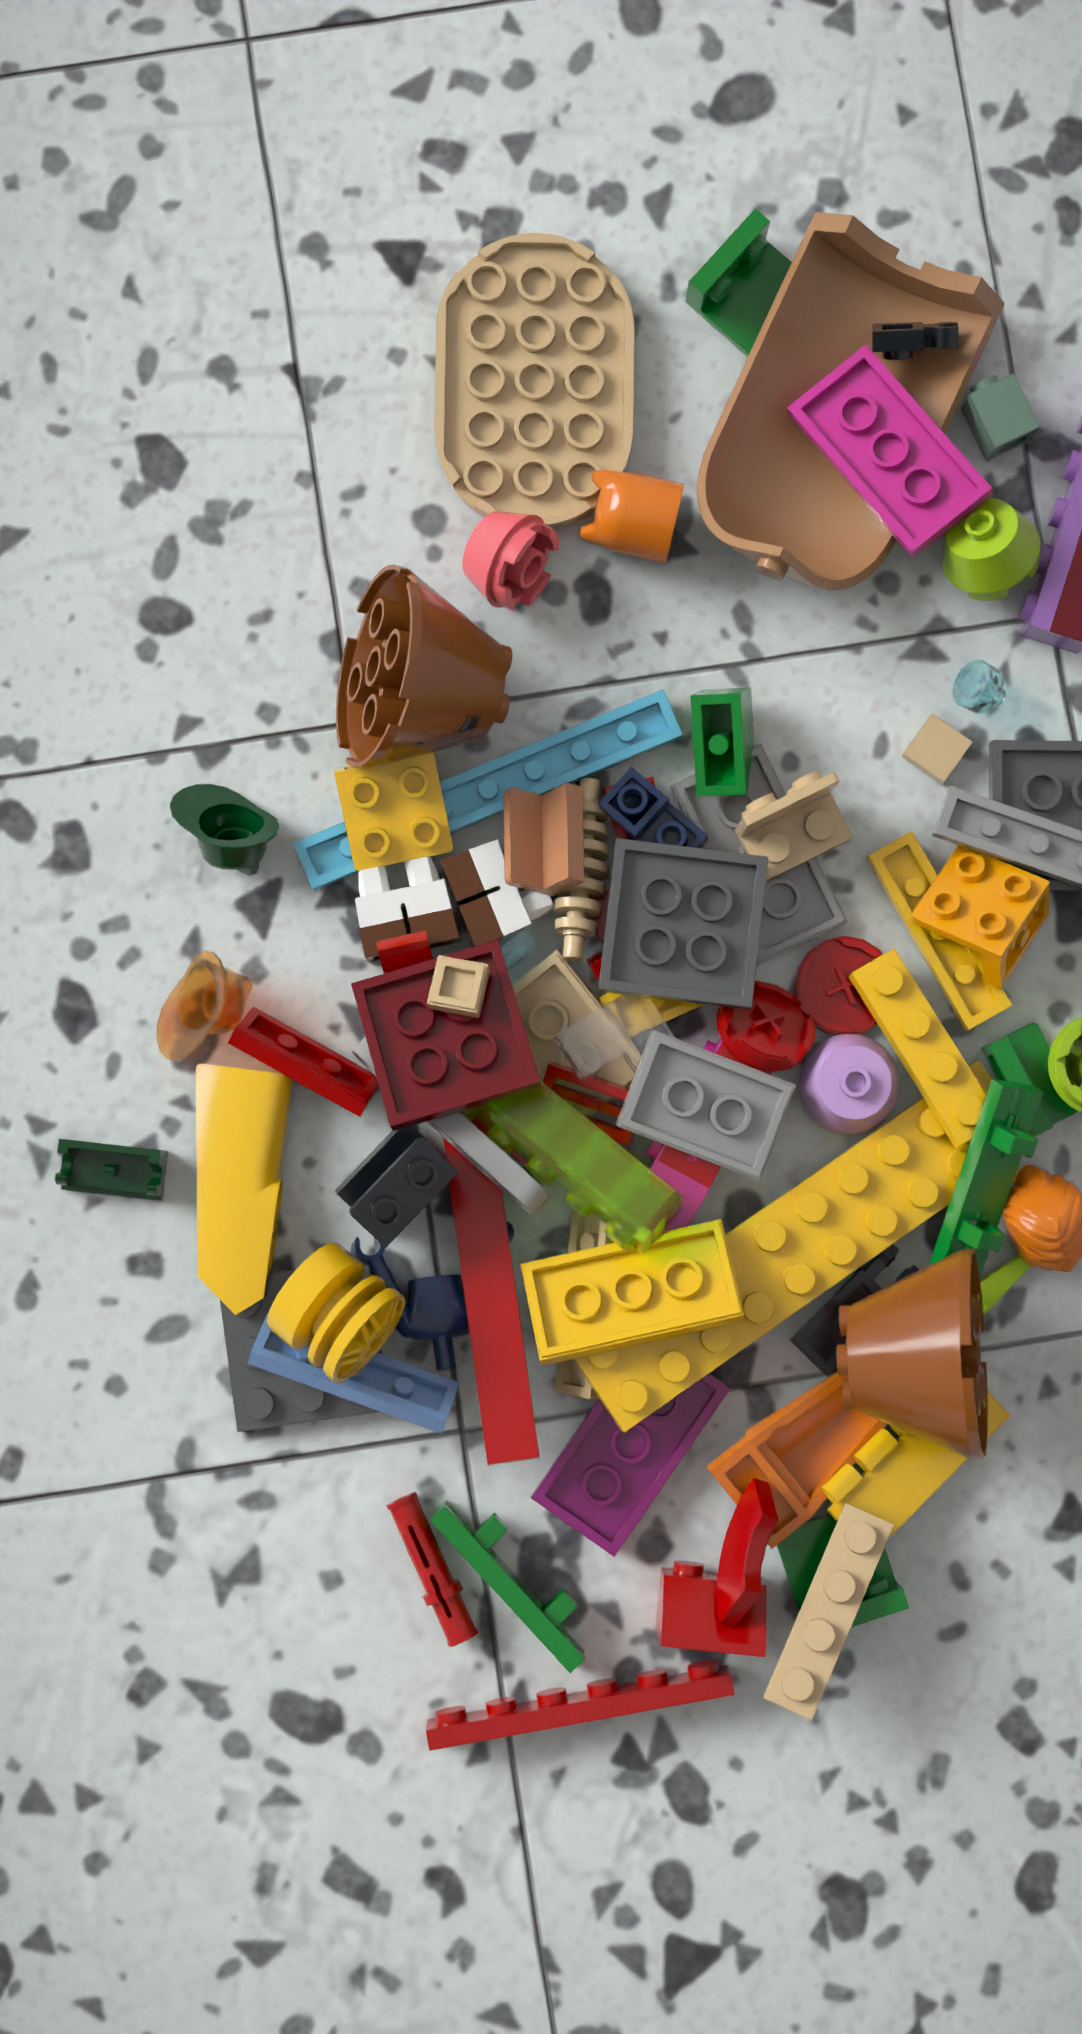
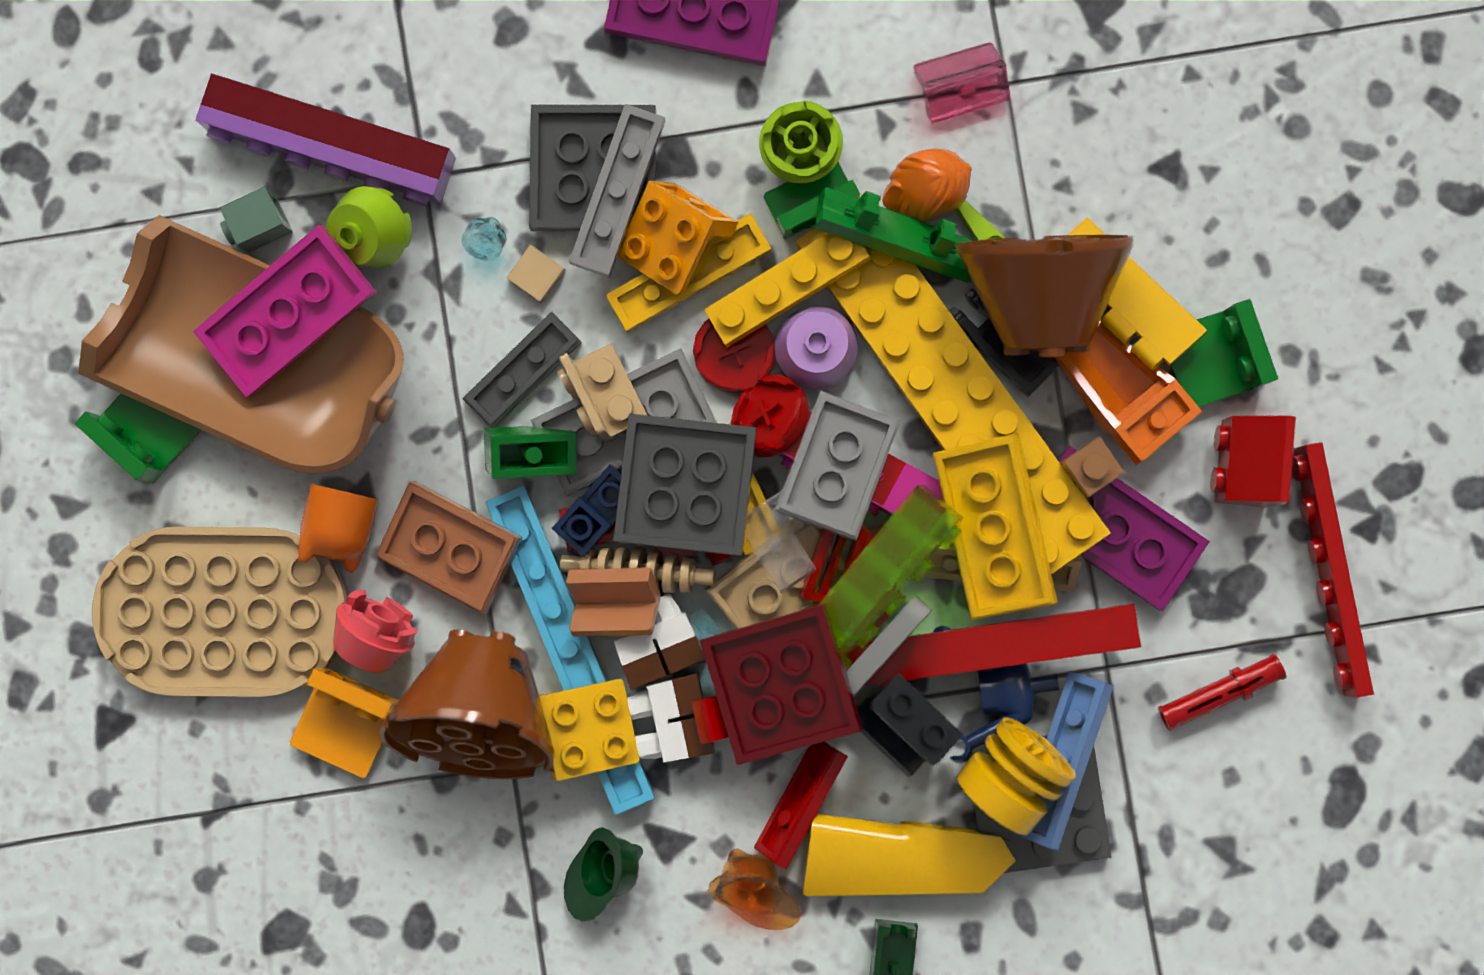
camera: 80 degrees left, 0 degrees up
(404, 523) = (342, 721): none -> light orange bracket
(458, 986) = (740, 674): tan tile -> none
(539, 1618) = (1261, 602): green hinge -> none
(609, 646) = (448, 547): none -> nougat tile
(703, 1410) = (1092, 467): none -> medium nougat brick
(744, 1552) = (1208, 433): red tile -> none
(820, 732) = (521, 370): none -> dark grey tile
(828, 1611) = (1256, 365): tan plate -> none
(900, 339) = (188, 301): black plate -> none

